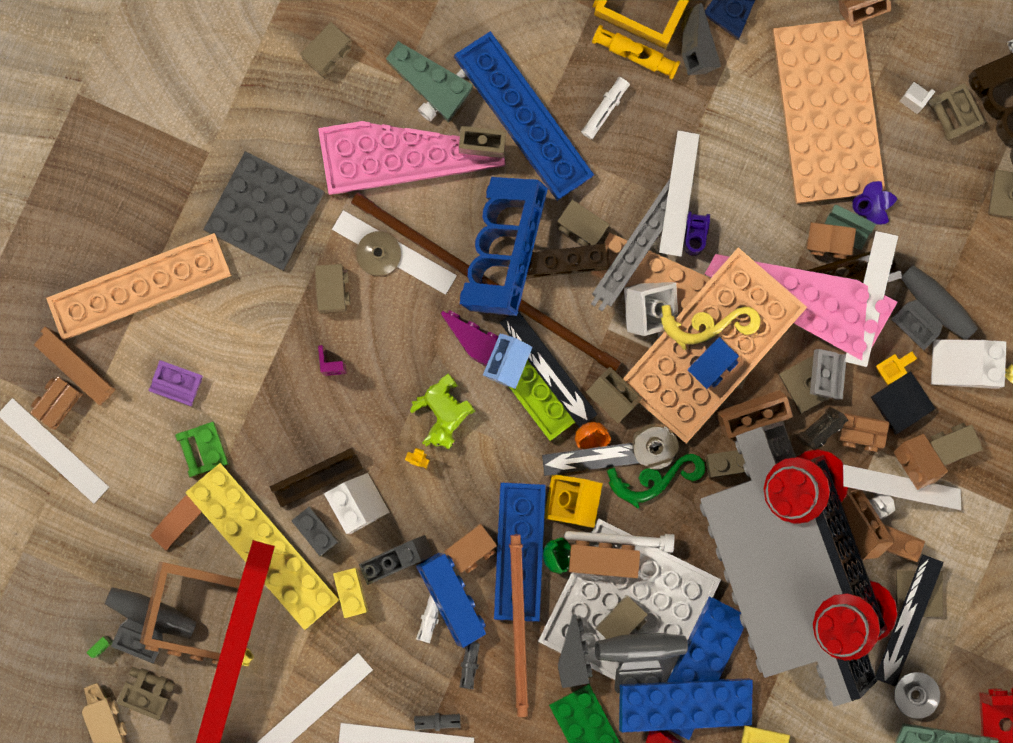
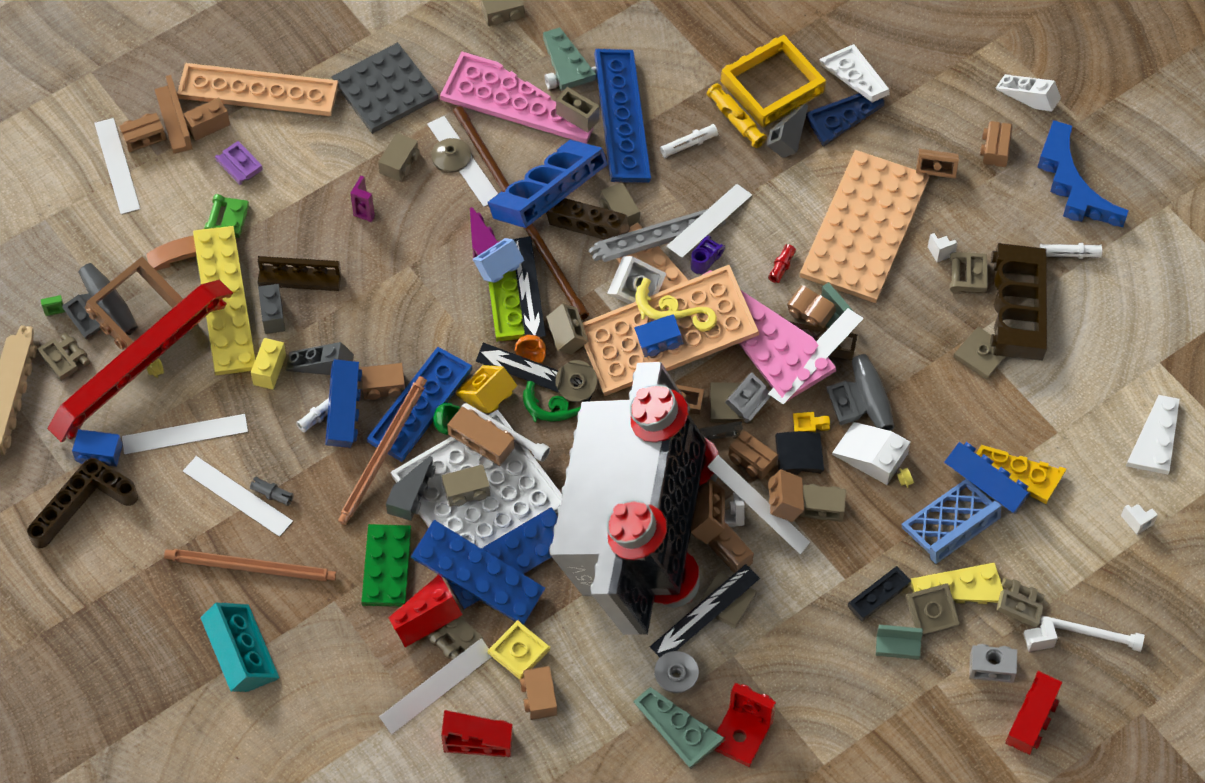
camera: 30 degrees right, 25 degrees down
(111, 352) = (206, 119): none -> medium nougat brick
(356, 503) = (315, 301): white slope -> none
(417, 458) = (384, 298): yellow plate -> none
(447, 410) = (430, 278): lime animal -> none
(469, 666) = (325, 463): dark grey pin -> none
(640, 655) = (465, 509): dark grey plate -> none
(773, 201) = (782, 263): none -> red pin
(877, 203) = (866, 301): dark purple plate -> none

